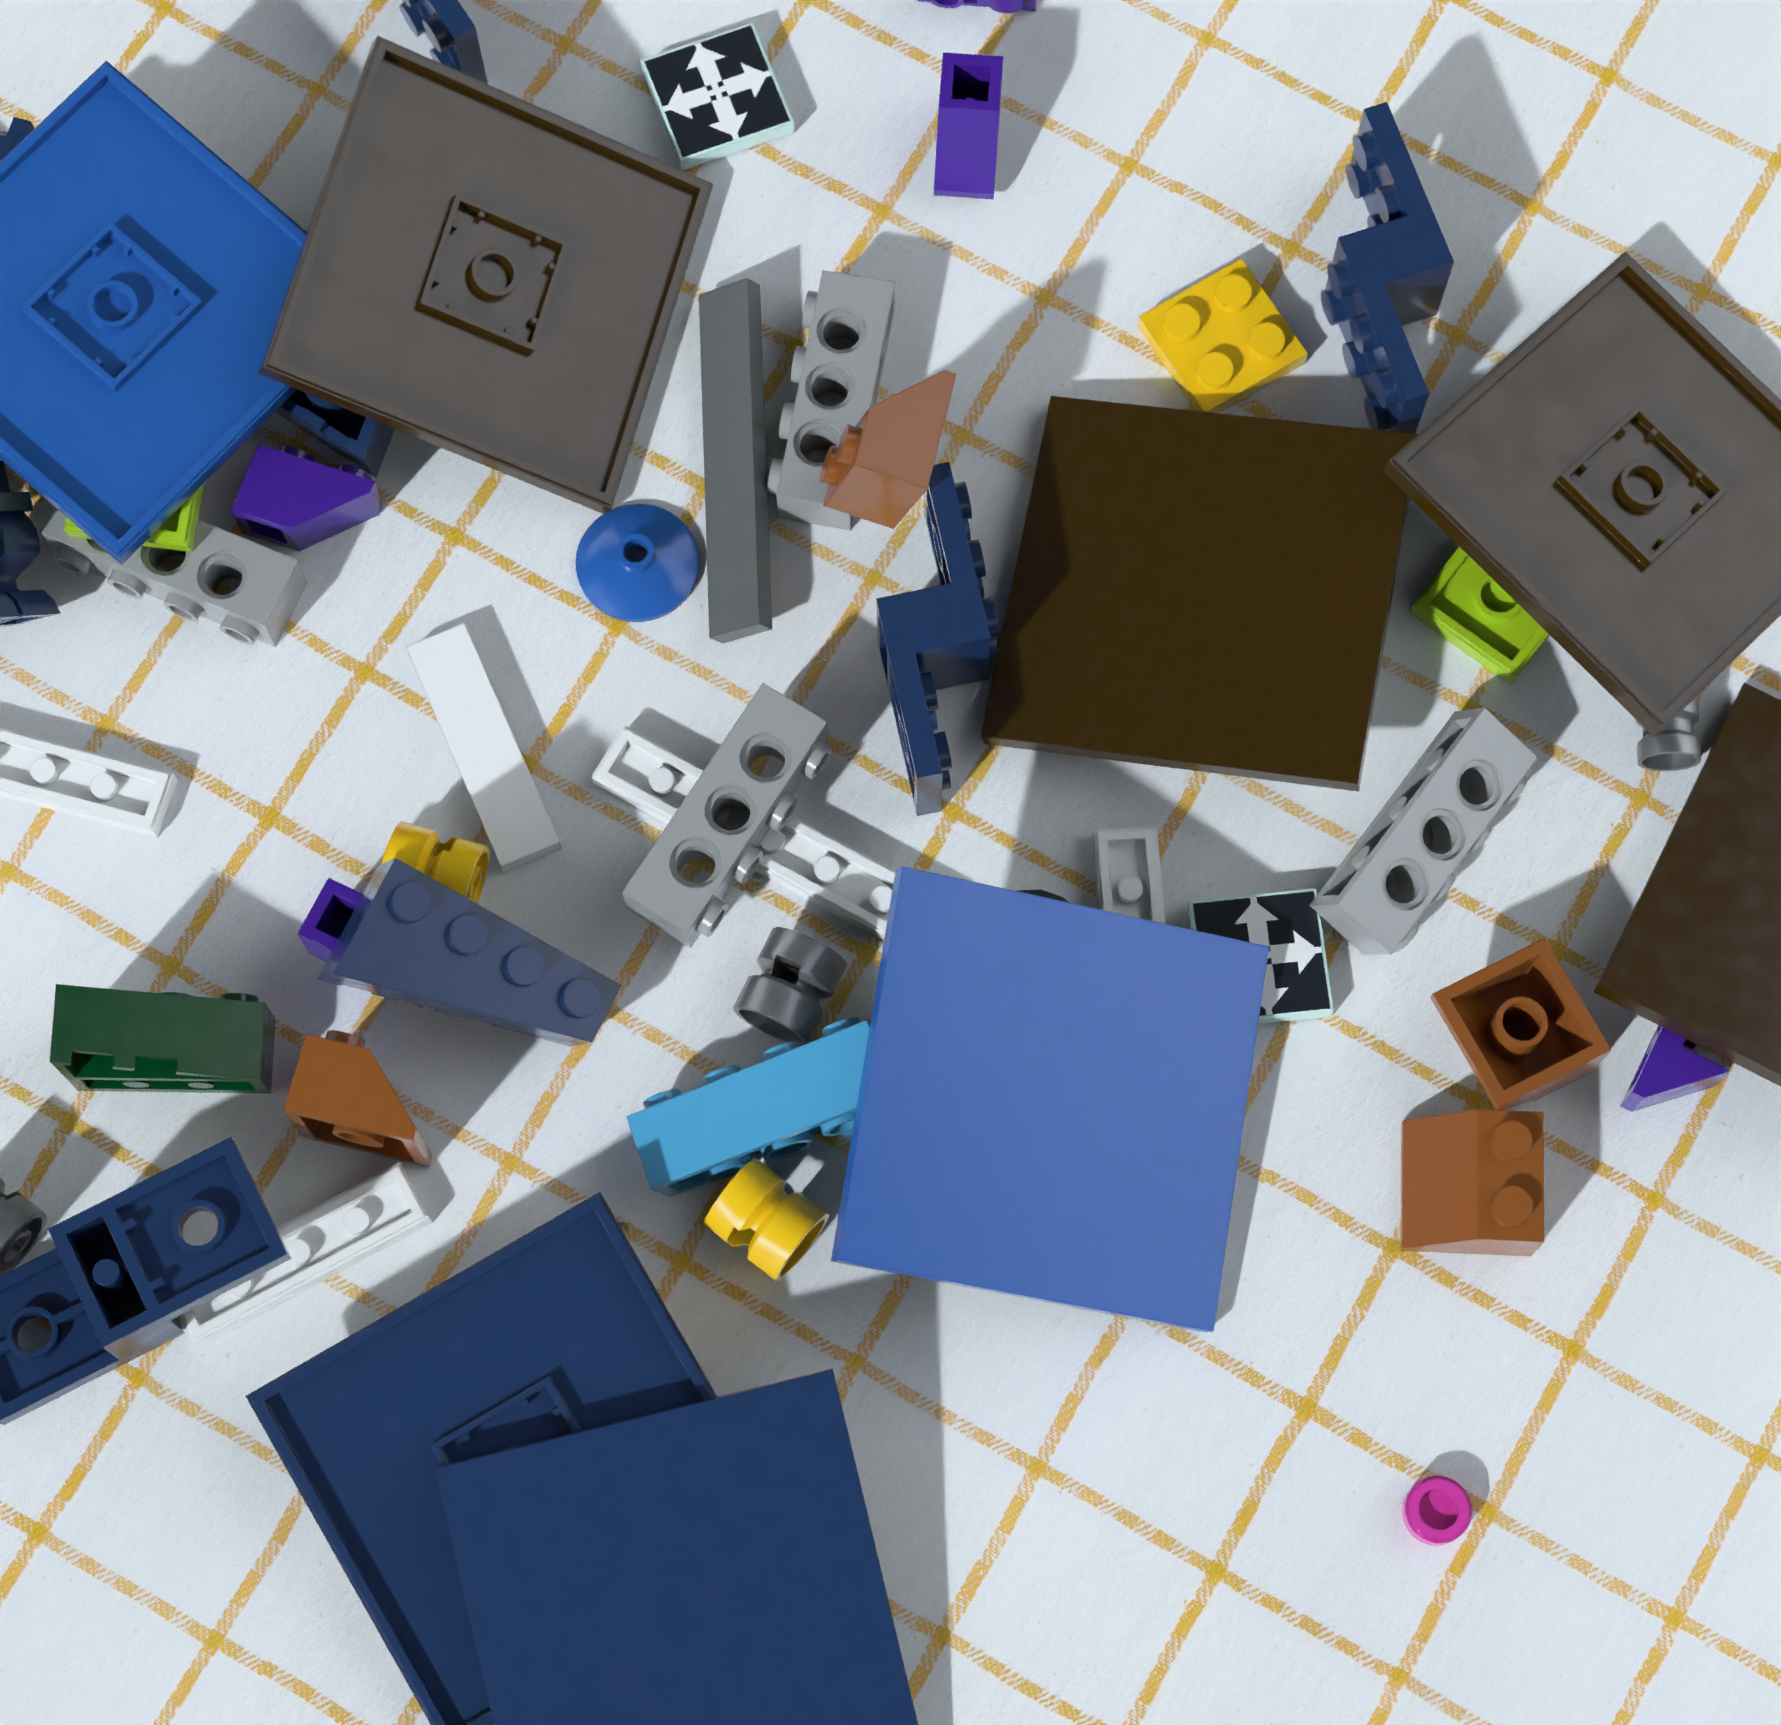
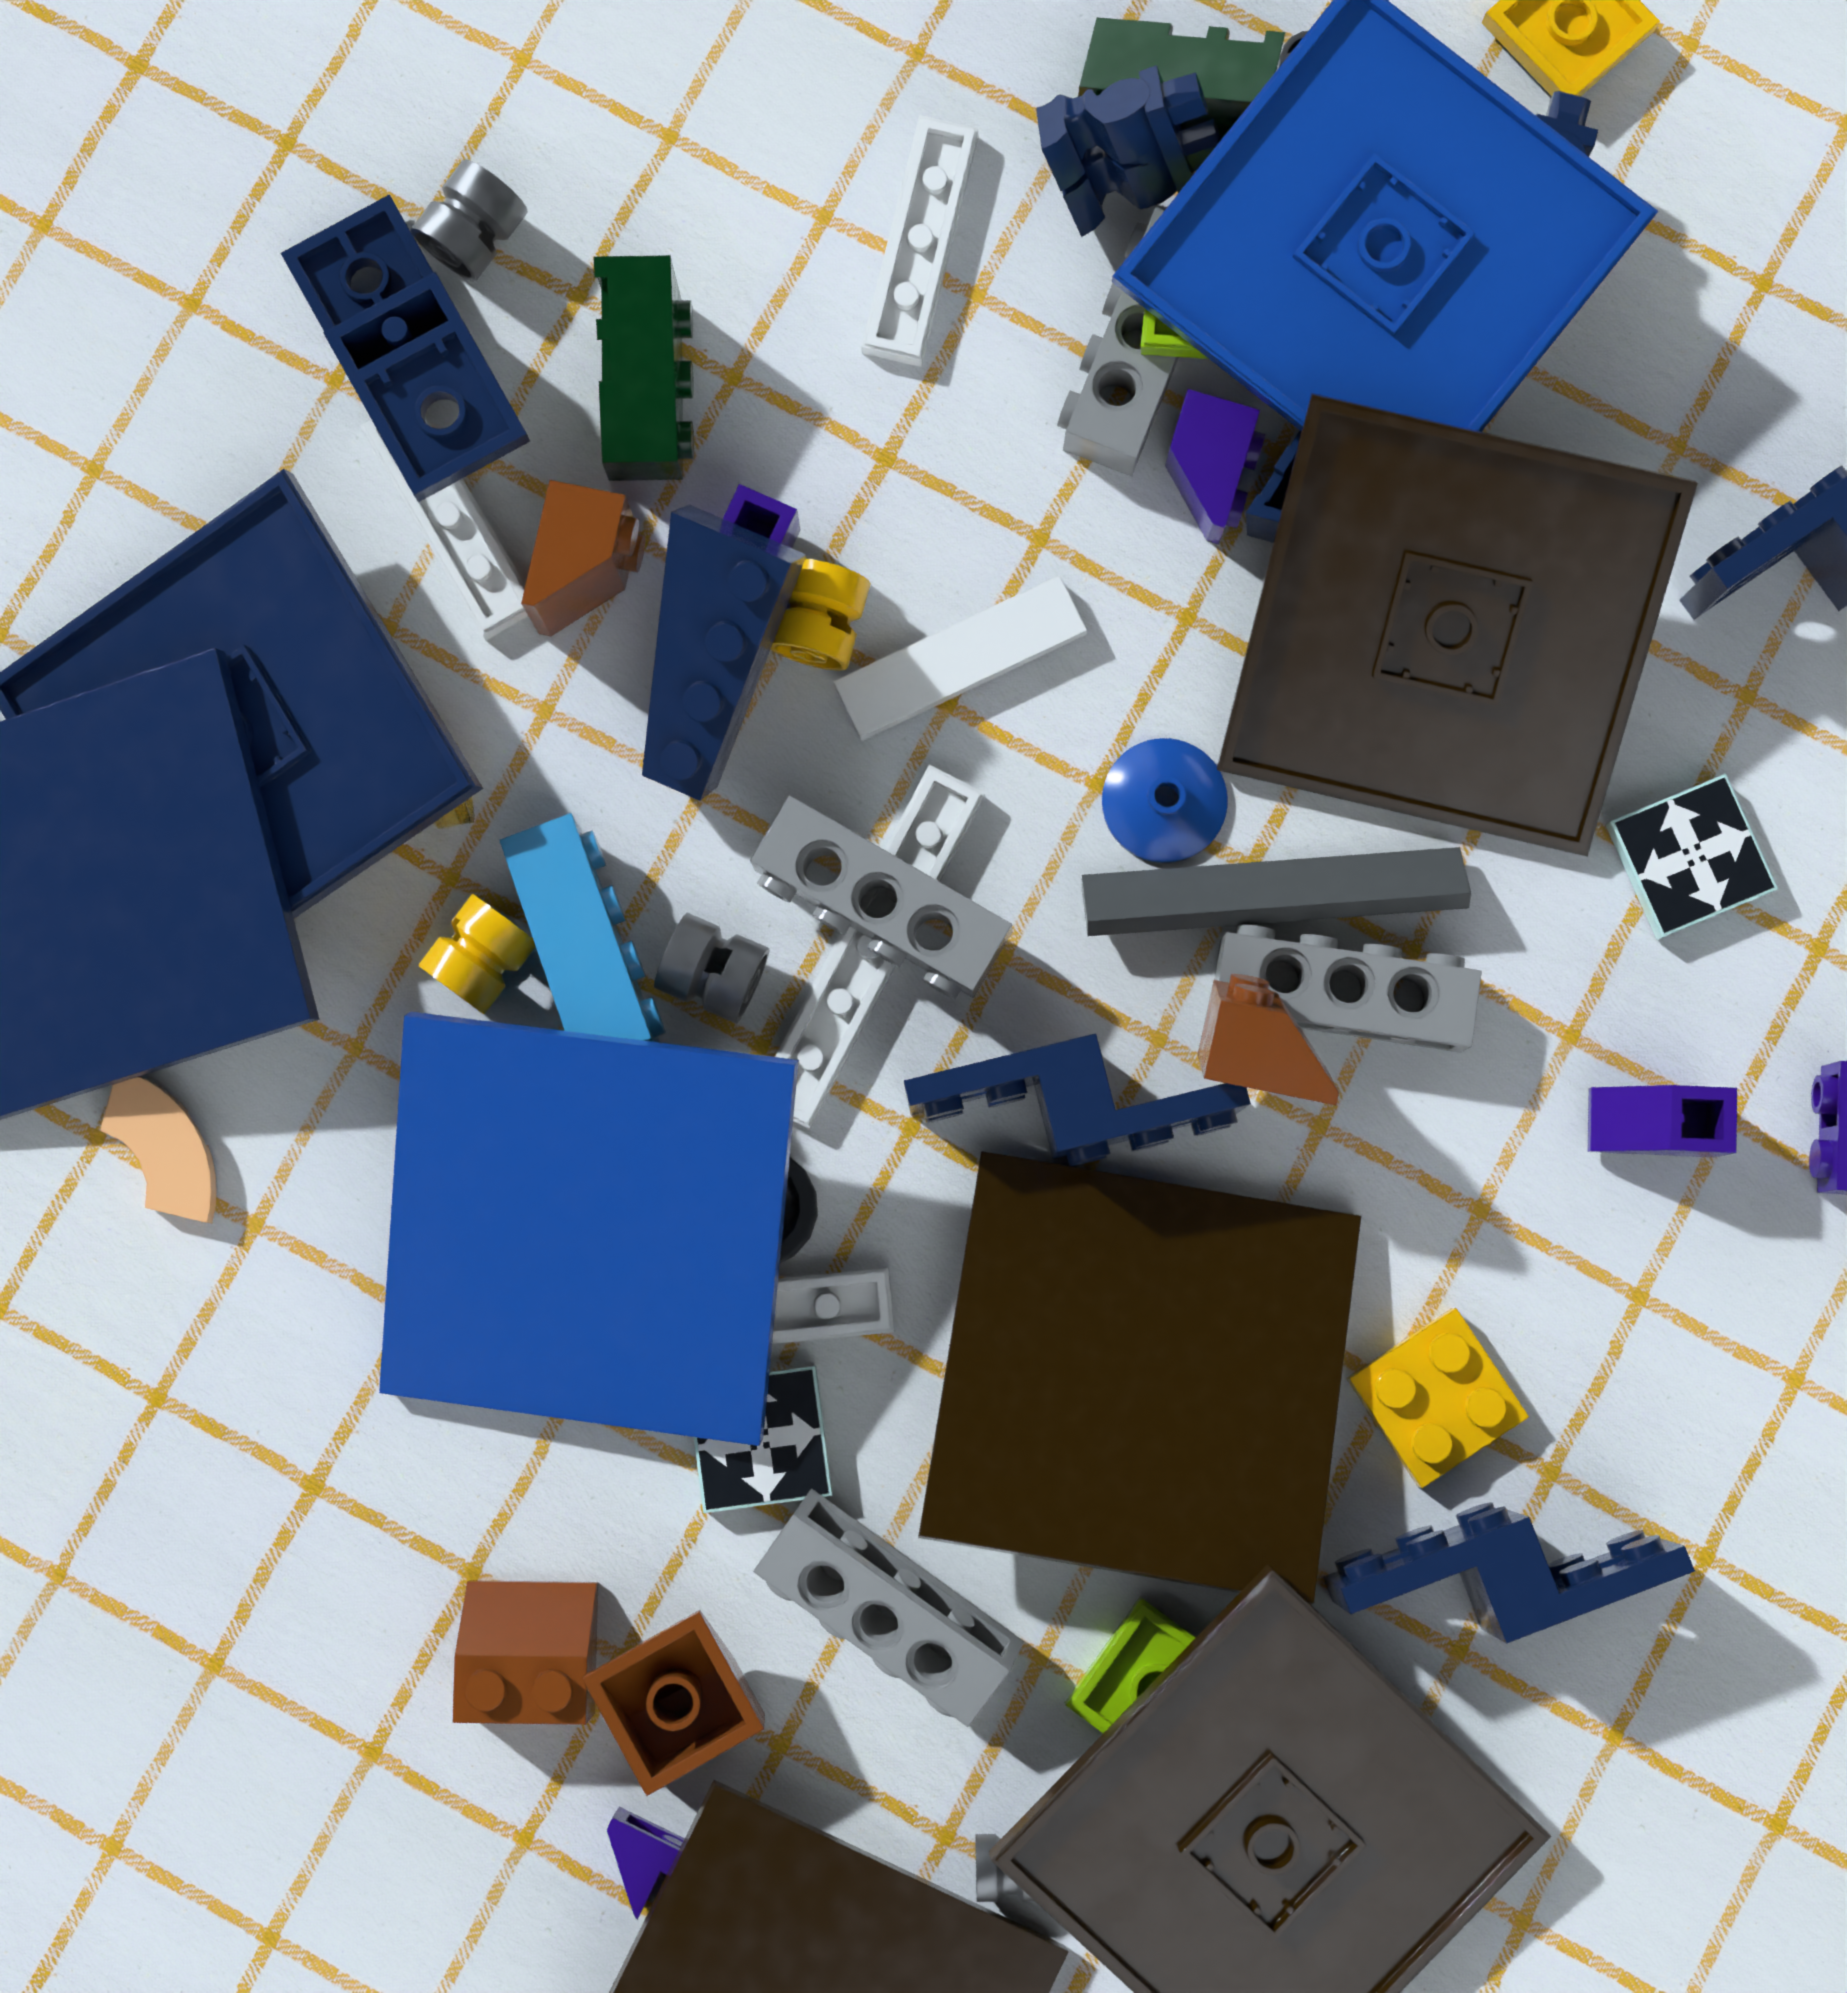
camera: 90 degrees right, 10 degrees up
(954, 1553) = (168, 1147): none -> light nougat tile
(1436, 1510) = (210, 1613): dark pink tile -> none

